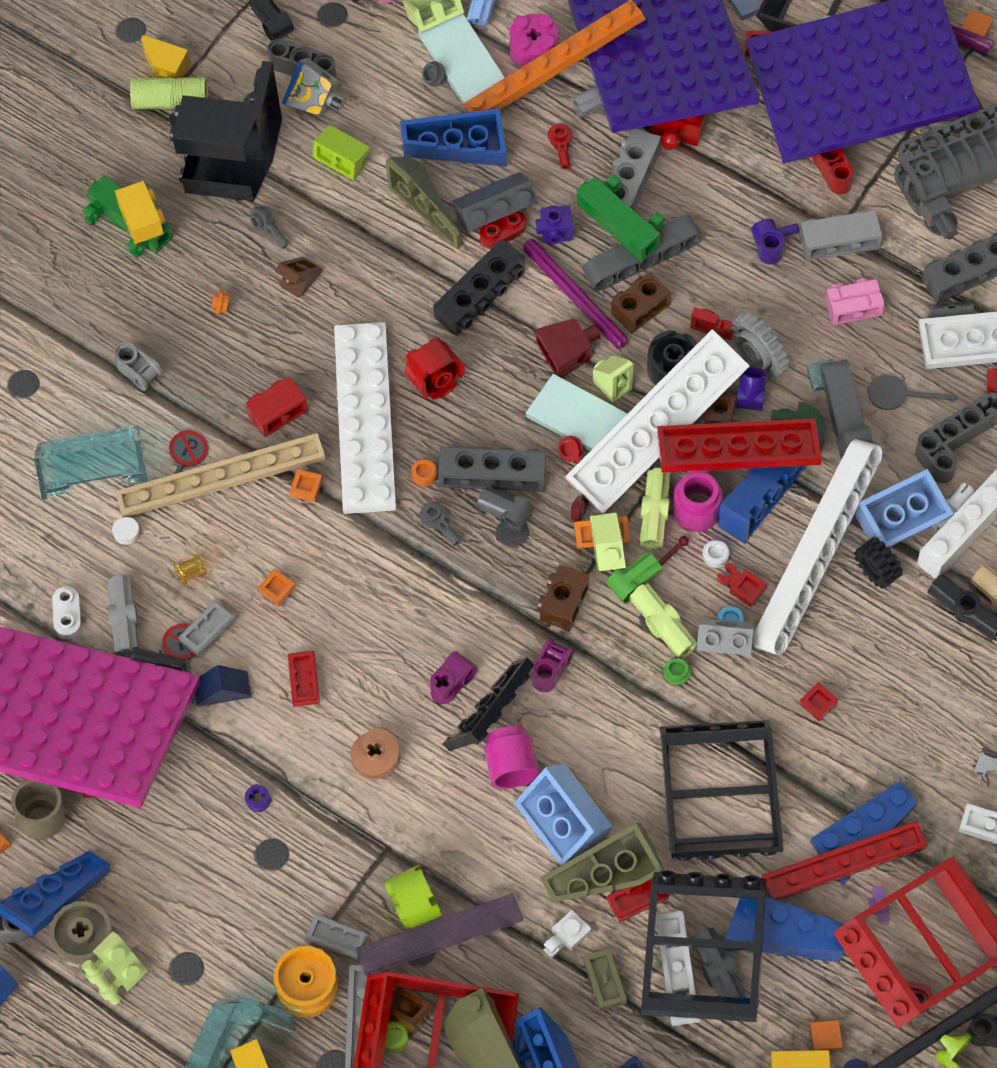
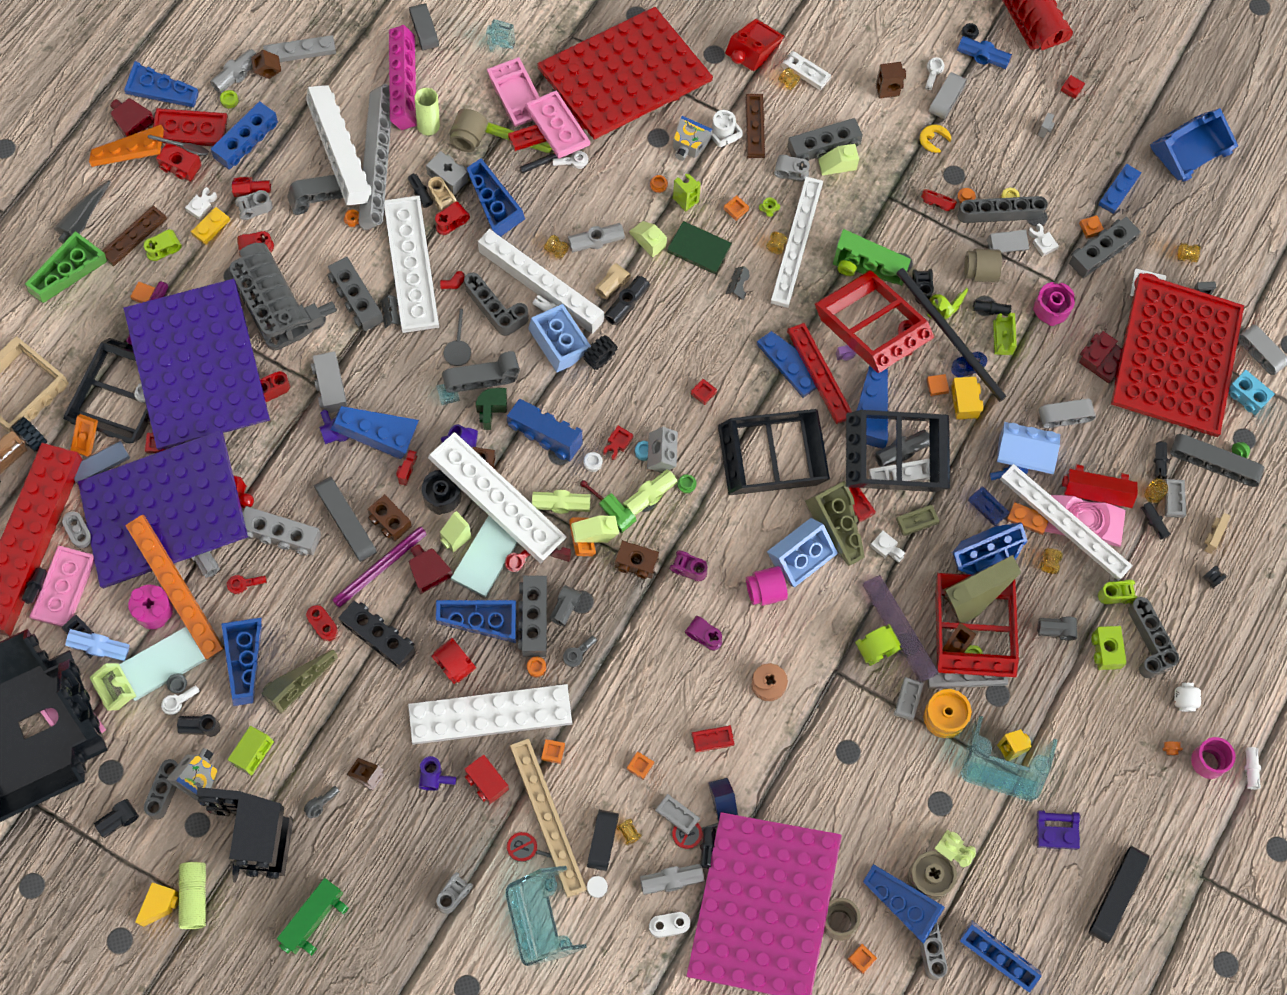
camera: 100 degrees left, 5 degrees up
(139, 212) = (317, 900): yellow brick -> none
(183, 537) = (602, 840): none -> black beam
(220, 302) = (392, 833): orange plate -> none
(251, 803) = (803, 761): dark purple bush -> none
(282, 346) = (431, 781): none -> dark purple piece
(378, 97) = (196, 725): none -> black piece
(409, 71) = (172, 704): none -> white plate
(489, 707) = (729, 604): black wing -> none
(491, 408) = (481, 617): none -> blue wedge
(494, 201) = (302, 626): dark grey brick -> none
(555, 224) = (322, 581): dark purple brick -> none
(618, 218) = (324, 530): green brick -> none
(696, 515) = (556, 481): dark pink piece -> none
(738, 445) = (519, 439): red plate -> none
(759, 344) = (432, 429): light grey gear -> none
(763, 277) = (378, 430): none -> blue wedge
(817, 547) = (592, 387): white beam -> none
(854, 301) = (387, 372): bright pink brick -> none

